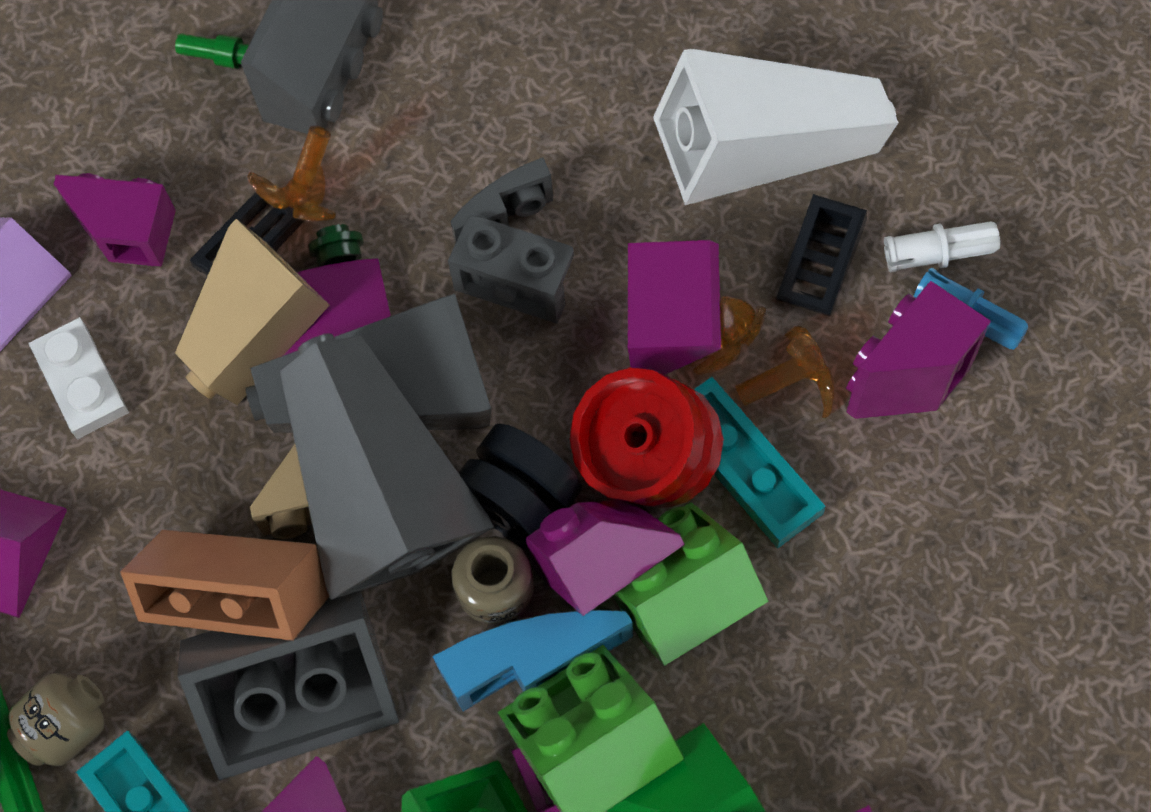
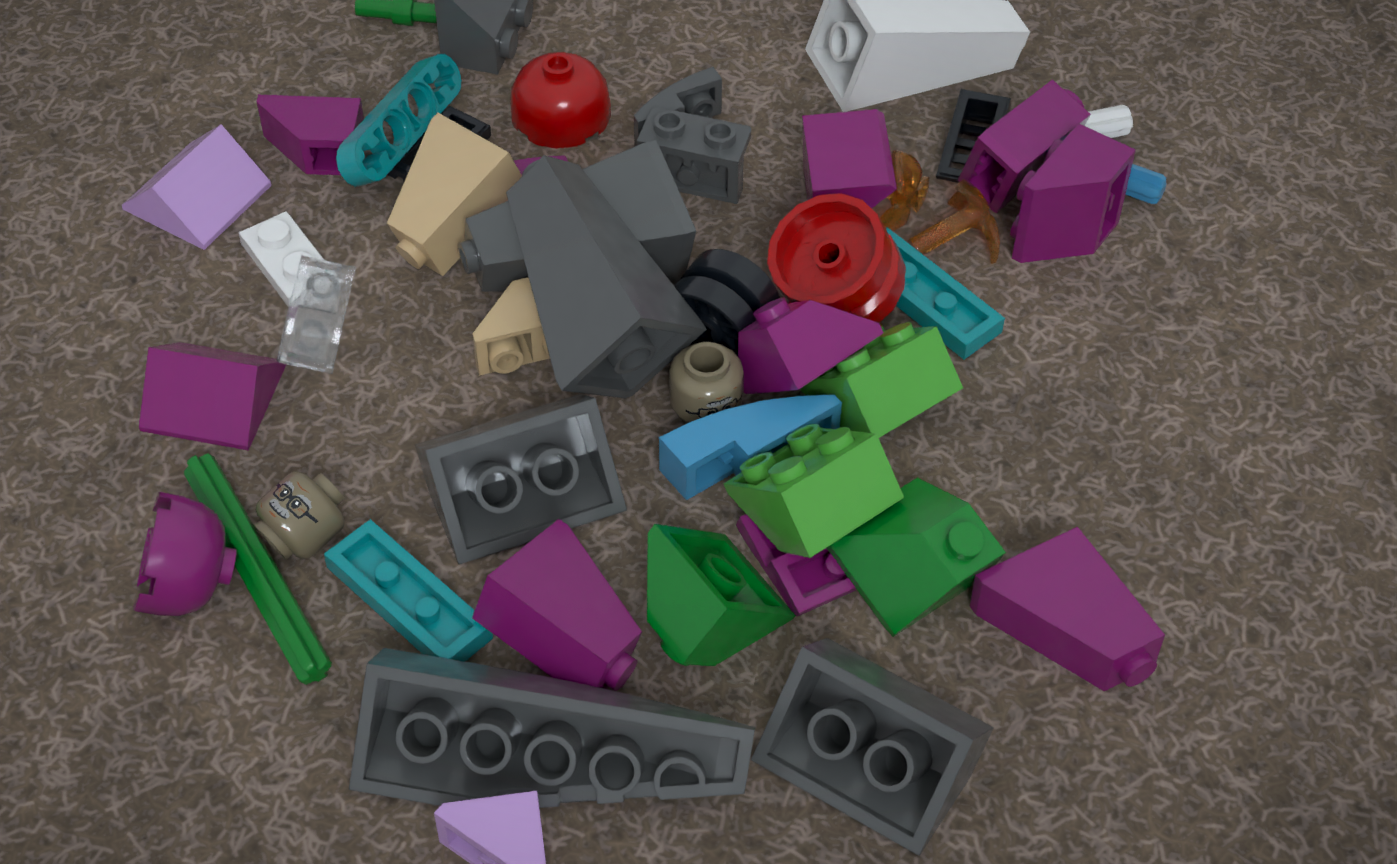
camera: 10 degrees left, 15 degrees down
(95, 460) = (316, 314): none -> clear slope
(211, 214) = (404, 124): none -> teal beam
(226, 584) = (458, 388): nougat brick -> none
(307, 185) = (490, 105): clear orange plant -> none
(336, 245) = (526, 142): dark green plate -> none
(380, 184) = (560, 100): none -> red cylinder
(875, 281) = (1021, 142): none -> magenta slope

